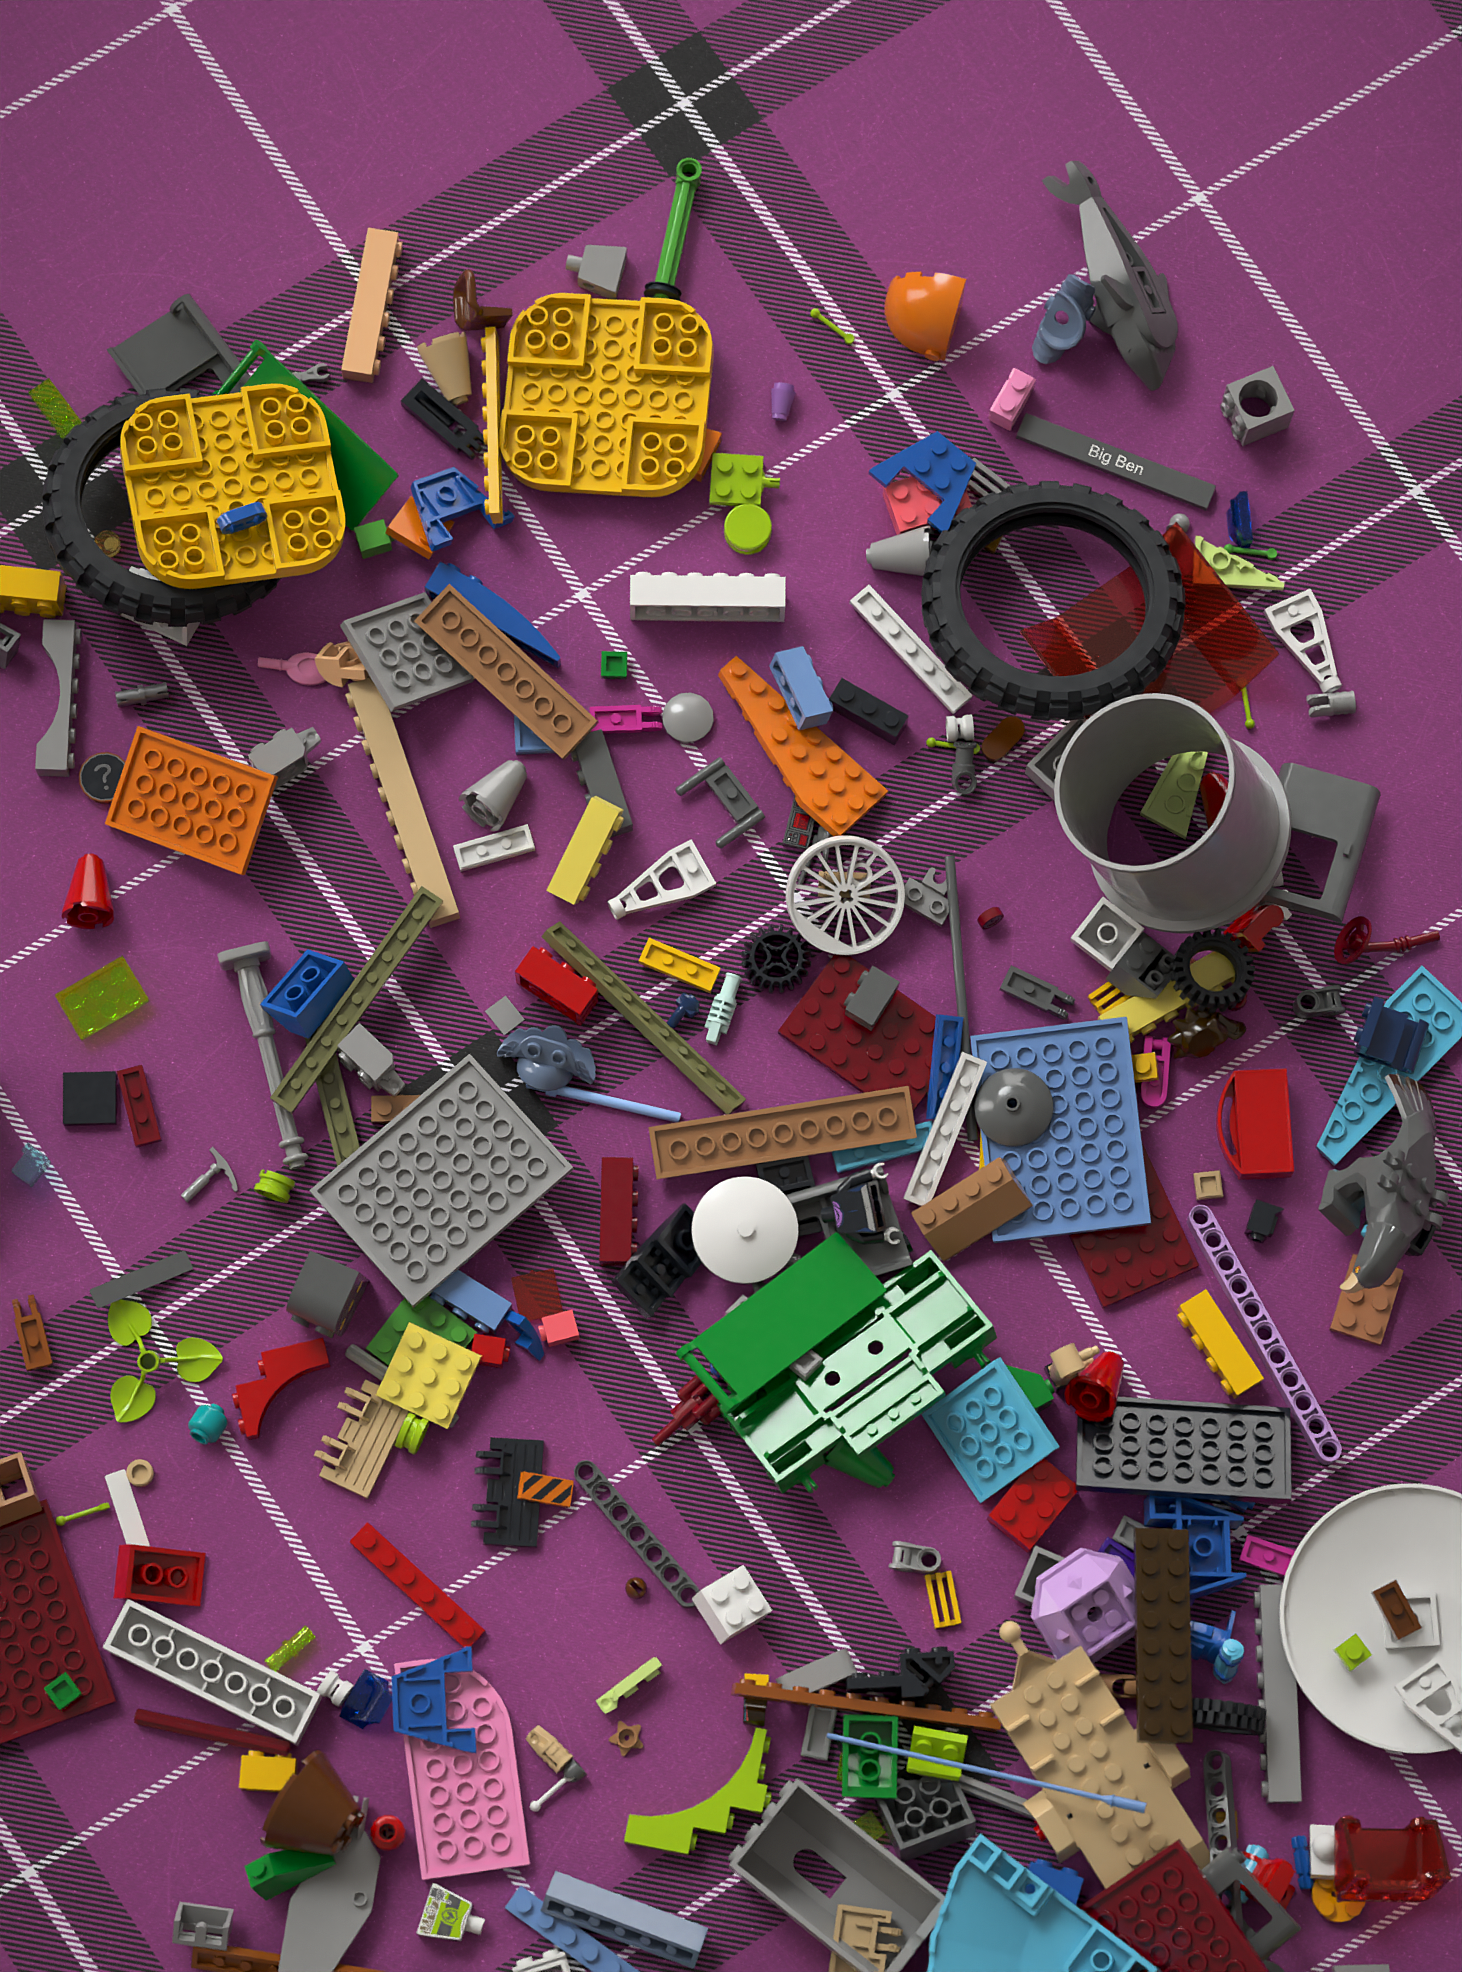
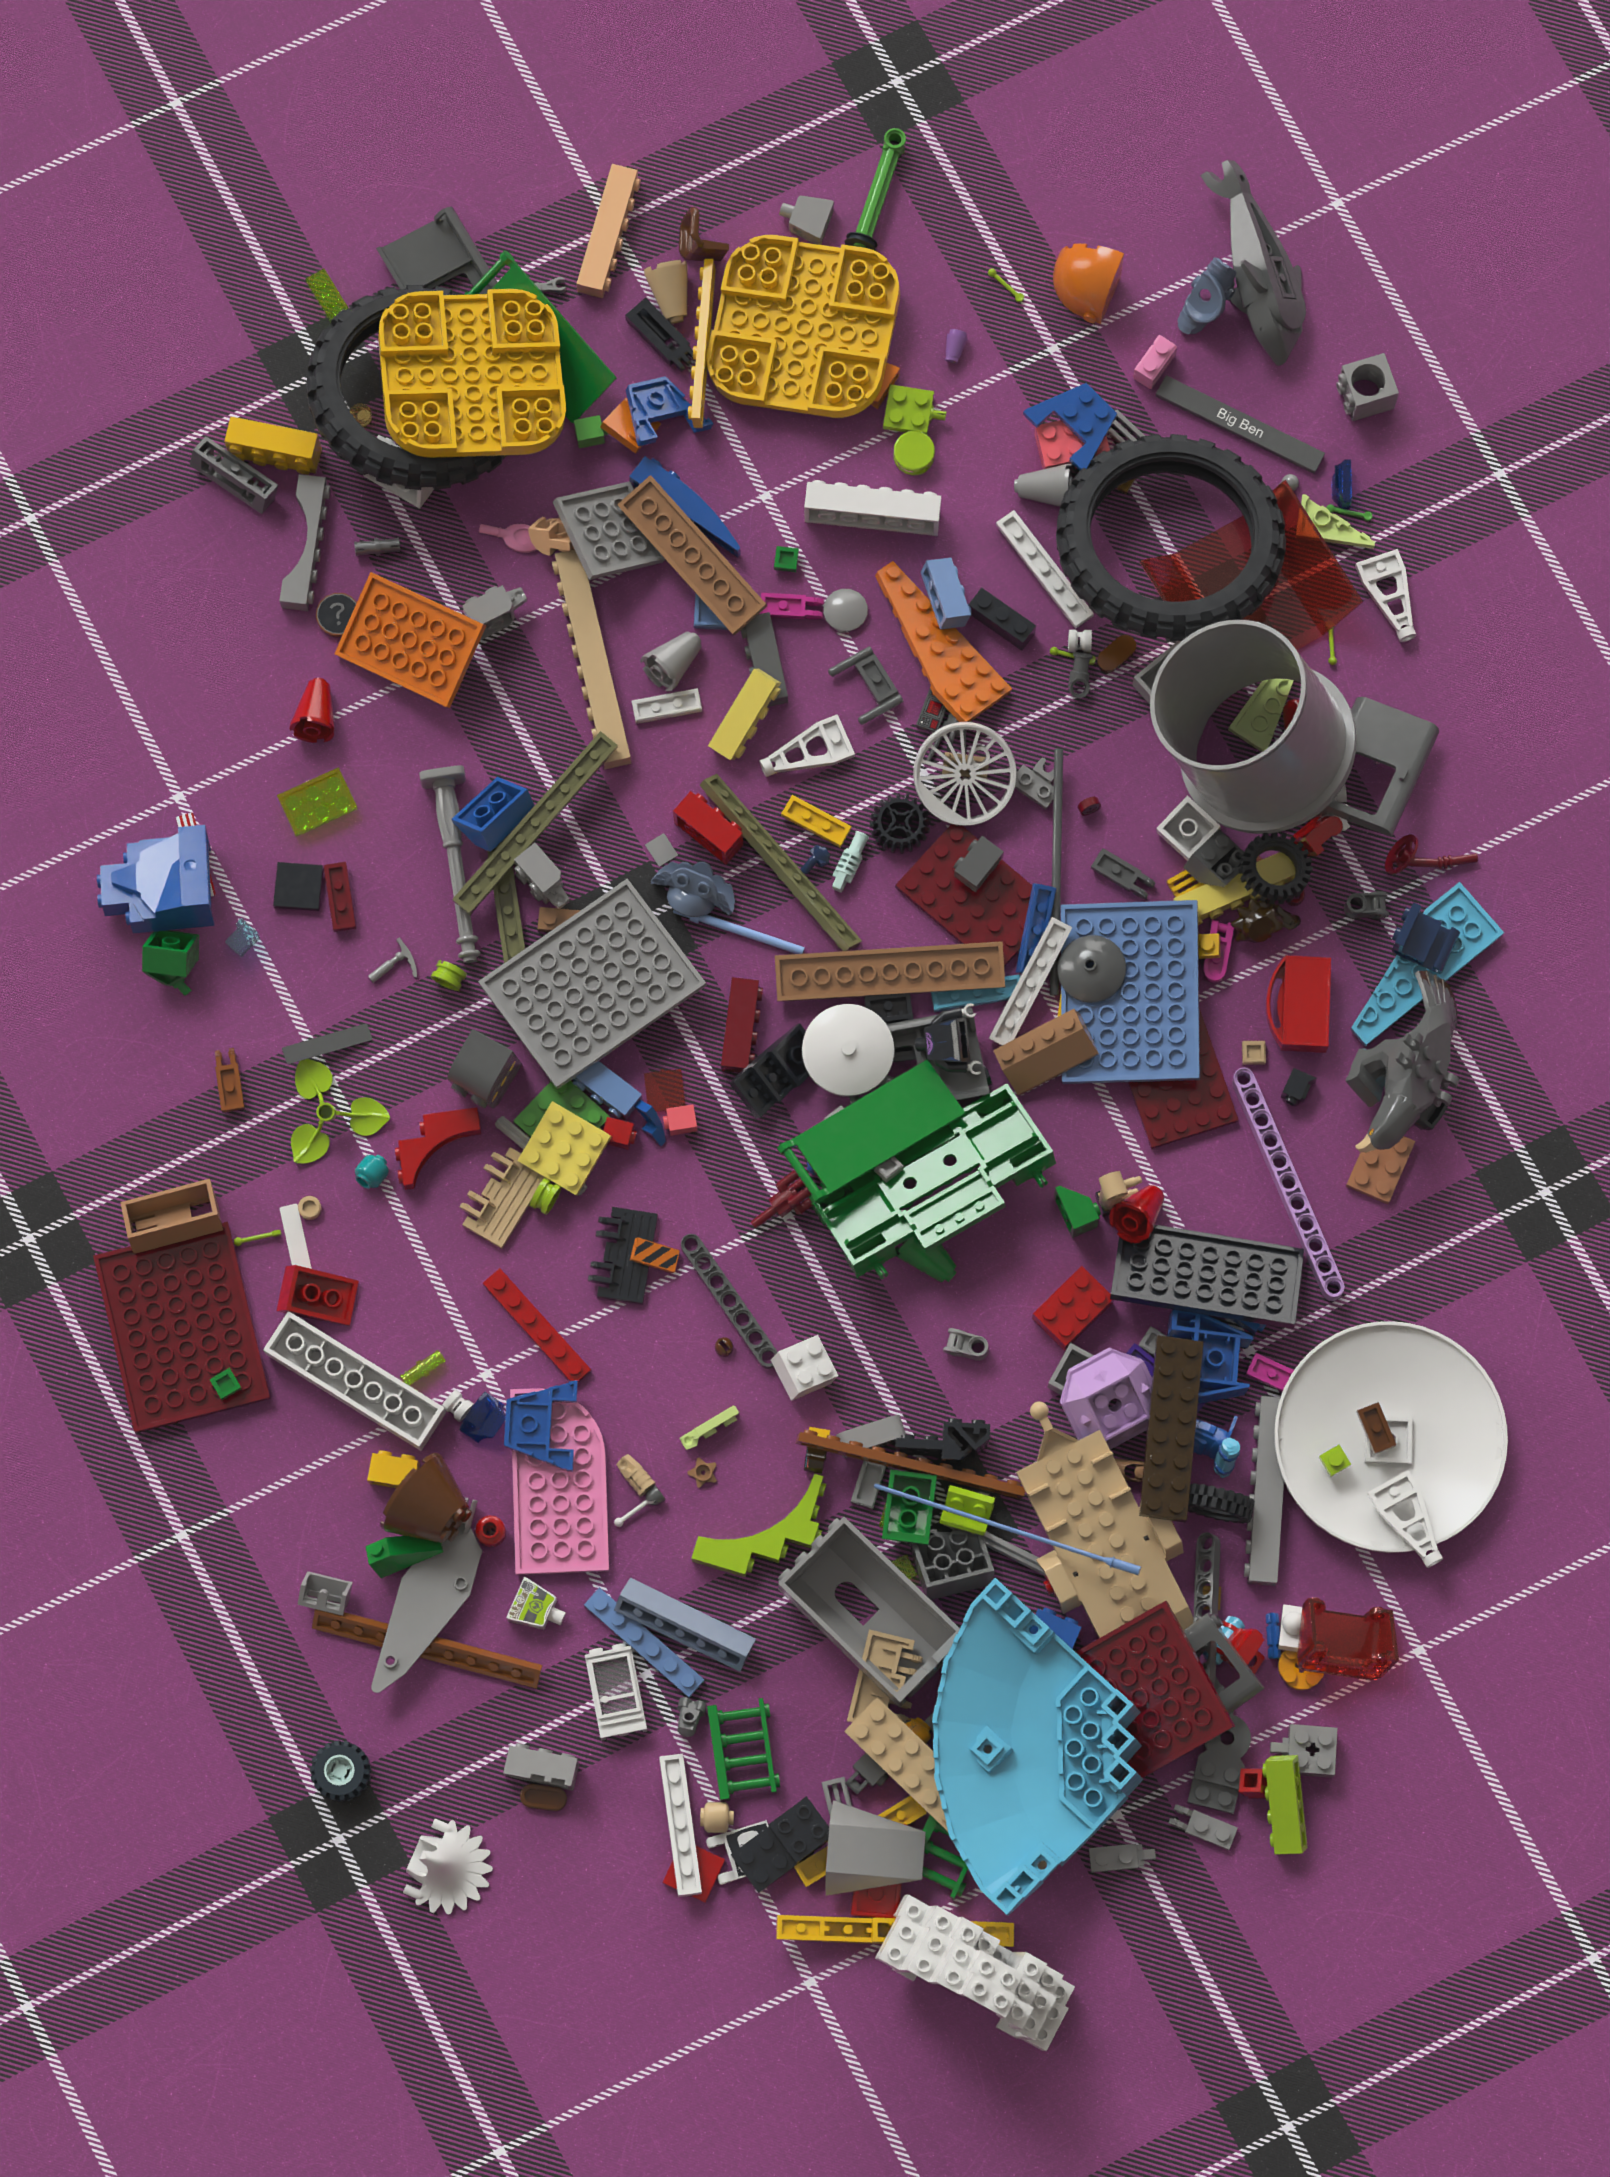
camera: 10 degrees right, 0 degrees up
(212, 1732) = (350, 1432): dark red axle -> none
(241, 518) = (476, 400): blue beam -> none
(938, 1577) = (984, 1362): yellow tile -> none
(990, 1430) = (1042, 1241): medium azure plate -> none
(1219, 1344) = (1249, 1189): yellow brick -> none
(1332, 704) = (1405, 650): light grey hinge -> none

